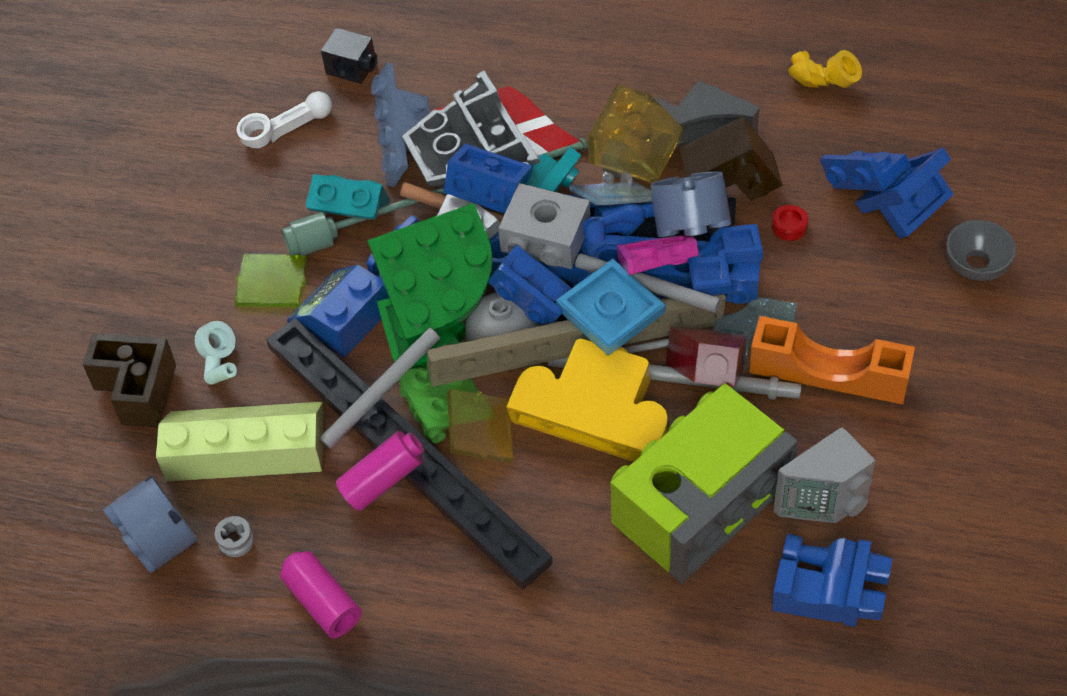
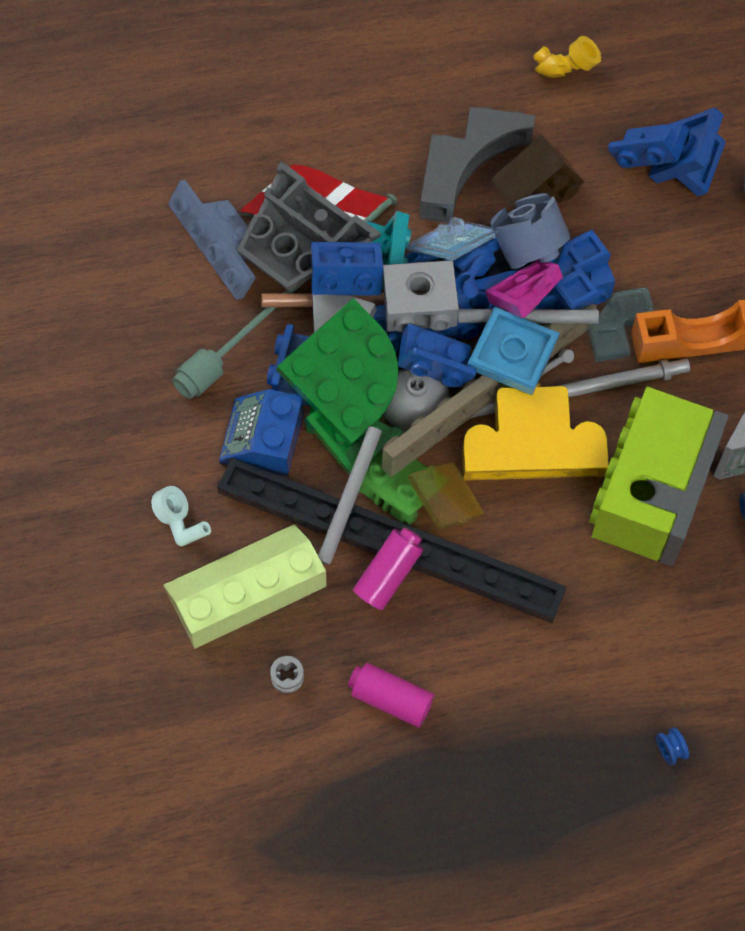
camera: 30 degrees left, 10 degrees up
(135, 371) = (119, 558): dark brown brick -> none
(150, 524) = (219, 692): sand blue brick -> none
(270, 280) = (181, 428): clear neon green piece -> none
(317, 106) = (130, 244): white piece -> none
(346, 196) = (216, 327): teal bracket -> none
(349, 55) = (135, 183): black brick -> none
(633, 135) = (448, 181): clear yellow slope -> none
(707, 355) = (608, 364): dark red slope -> none
(789, 222) = (603, 213): red tile -> none

